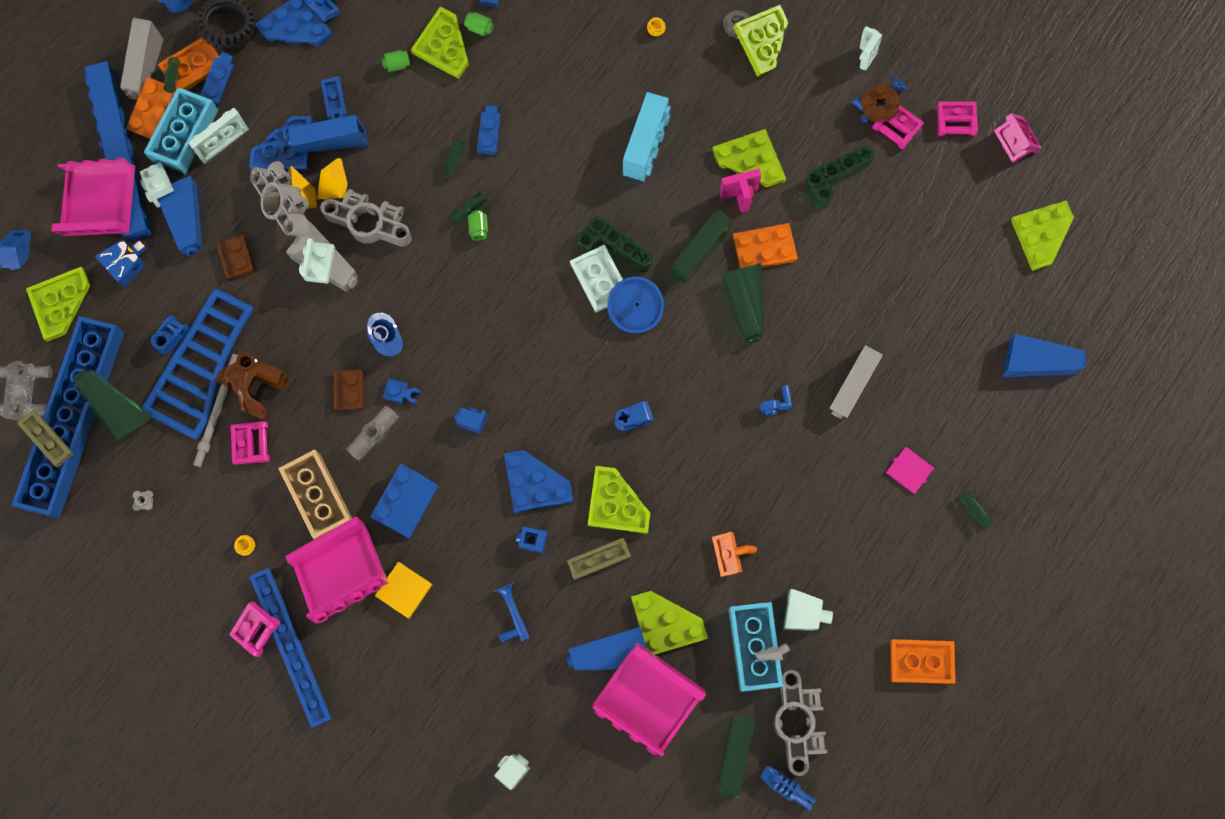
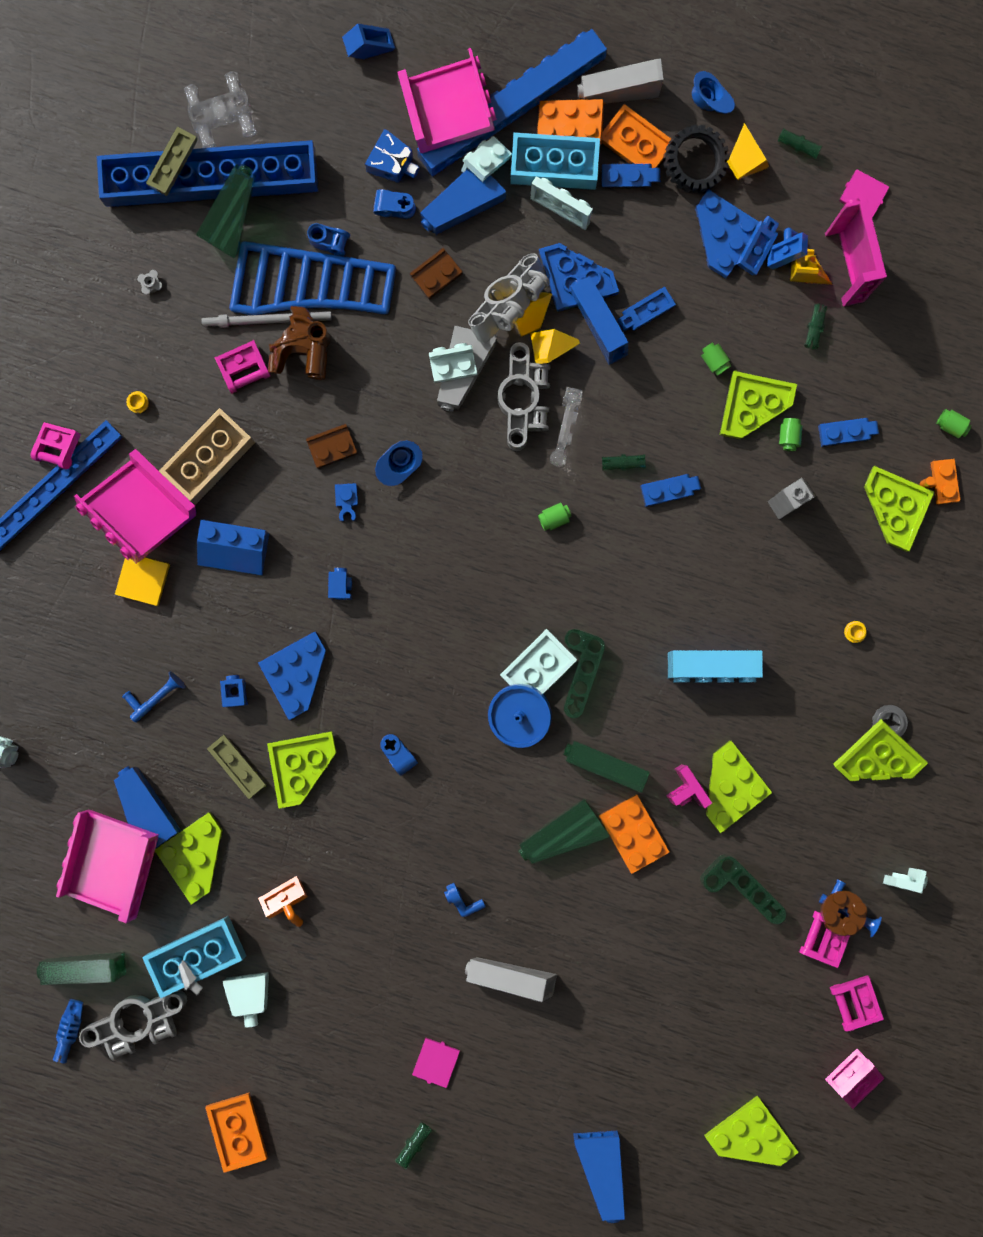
camera: 70 degrees right, 10 degrees up
(58, 301) = (327, 110): lime plate -> none
(162, 273) = (391, 203): none -> blue piece
(171, 75) = (612, 125): clear green pin -> none
(381, 423) = (305, 493): clear piece -> none
(386, 182) = (571, 401): none -> clear plate
(468, 207) = (572, 499): clear green pin -> none
(531, 33) = (791, 498): none -> light grey slope

